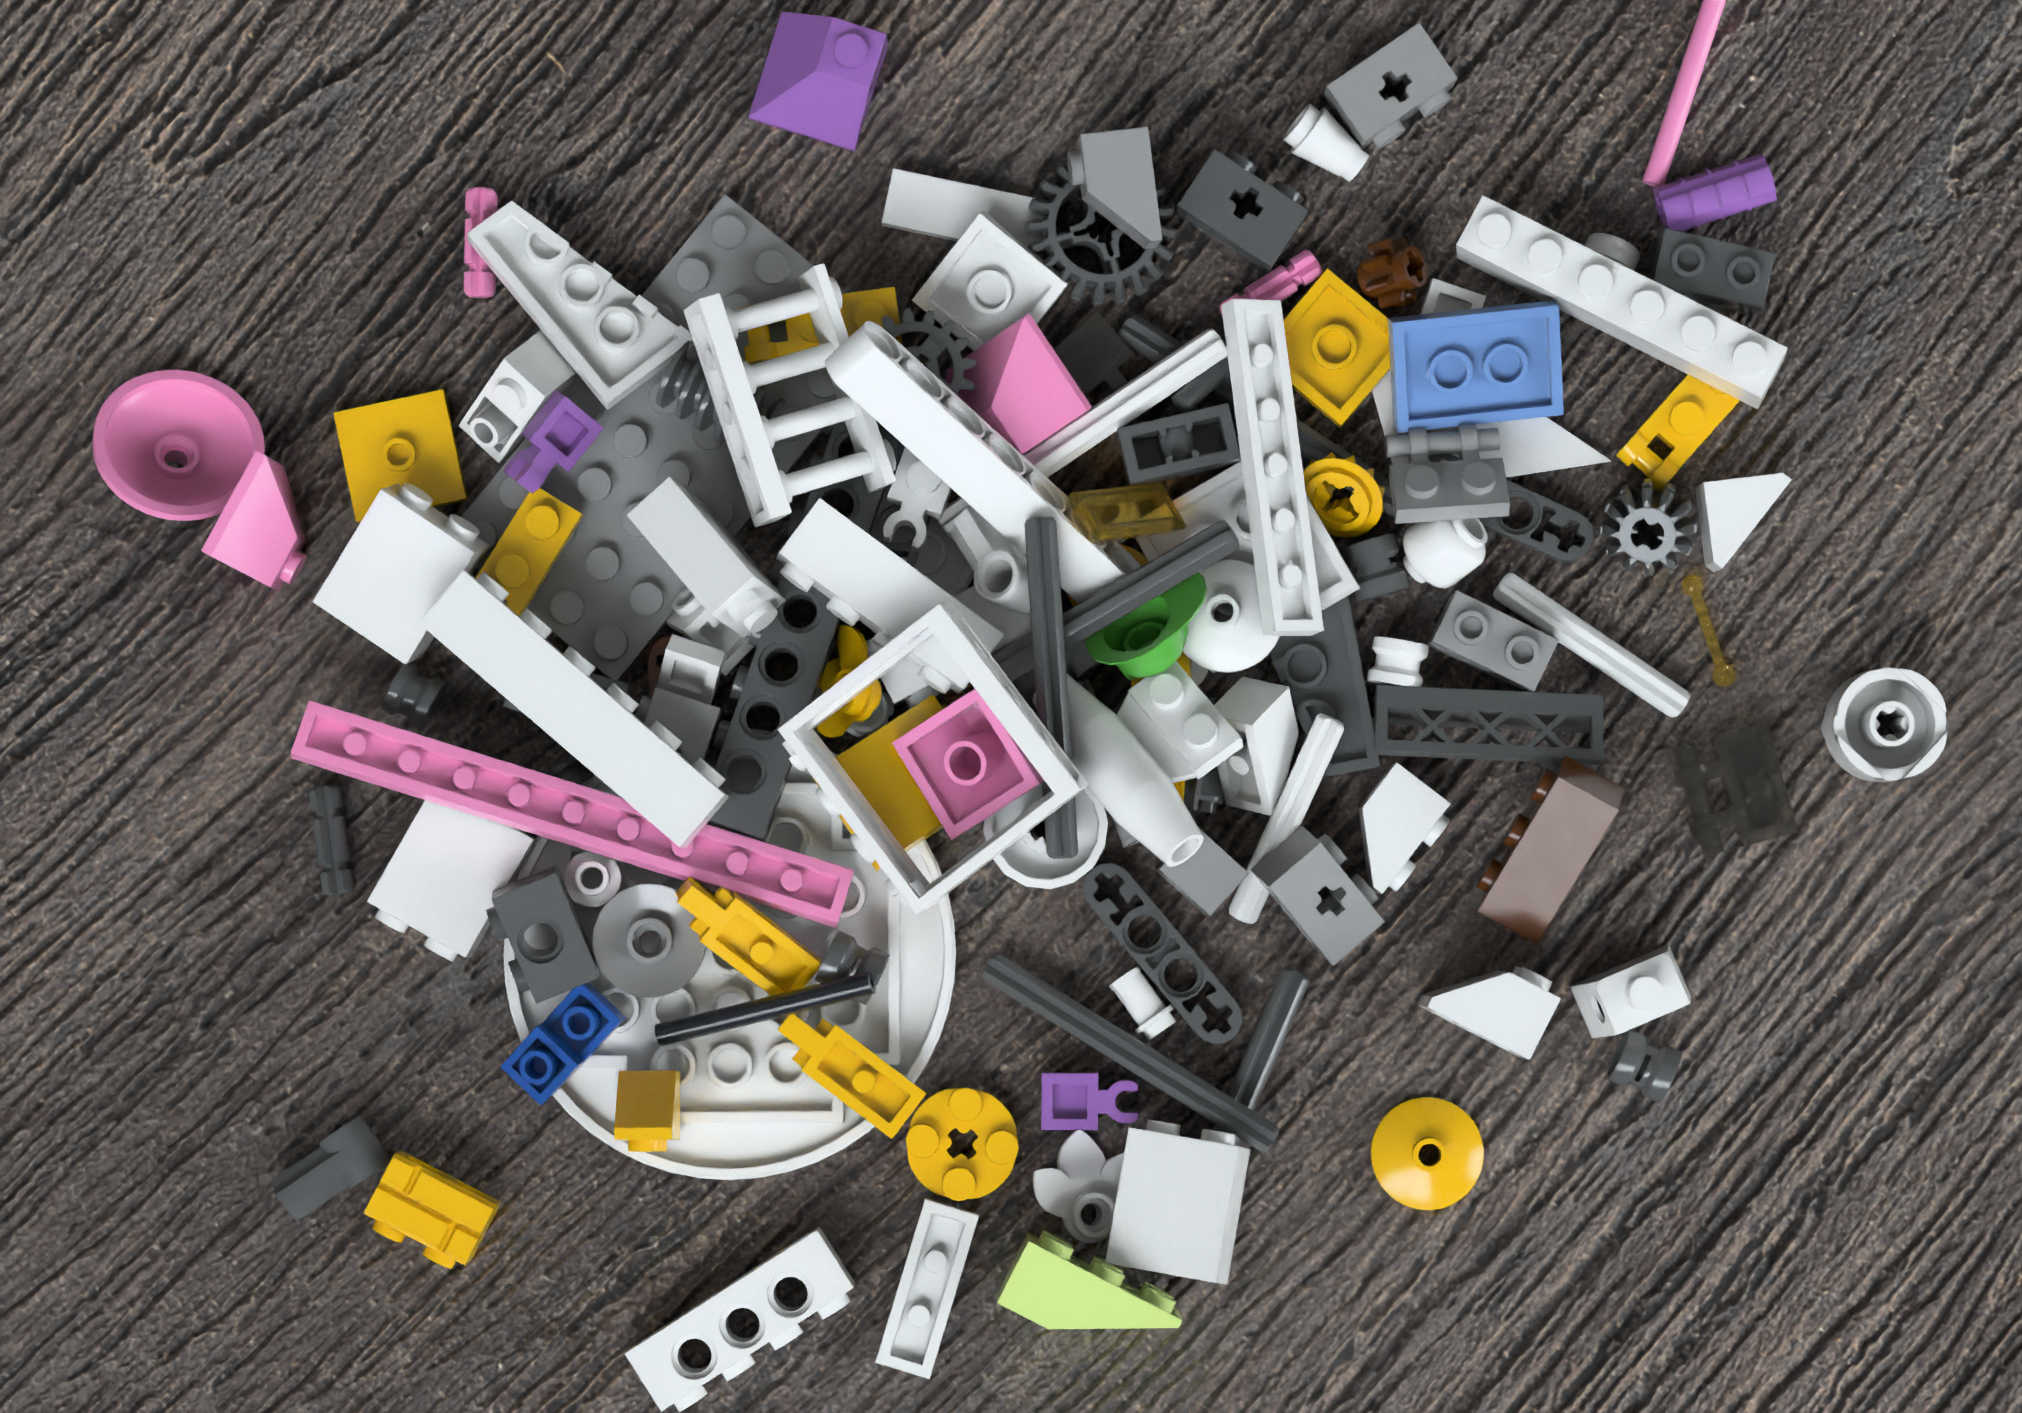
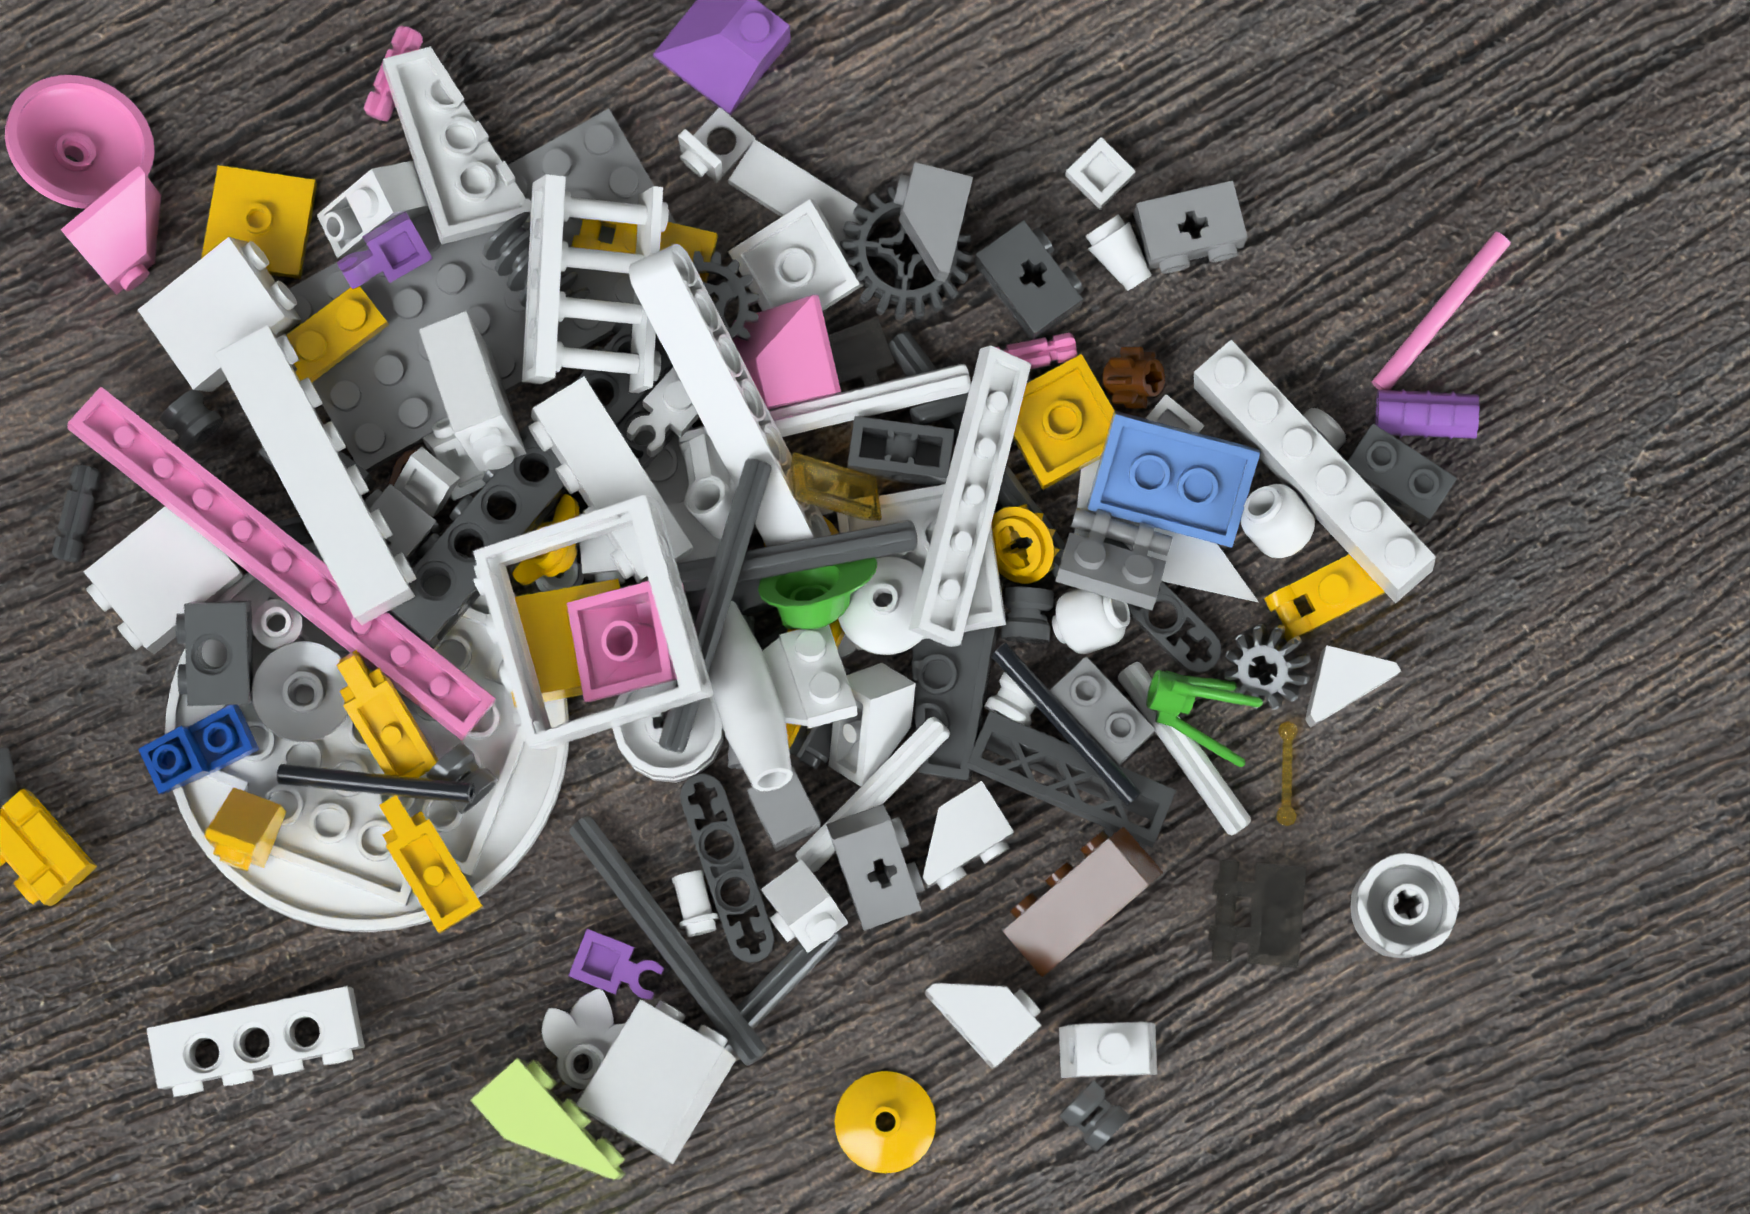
camera: 20 degrees right, 5 degrees down
(846, 211) = (698, 155): none -> white bracket
(927, 1288) = (421, 1073): white plate -> none
(962, 1176) = (524, 977): yellow plate -> none
(1260, 965) = (803, 907): none -> white brick
(1273, 66) = (1100, 173): none -> white plate
(1463, 670) = (1066, 724): none -> black piece
(1564, 592) = (1176, 693): none -> bright green plant
(1602, 368) = (1277, 520): none -> white head

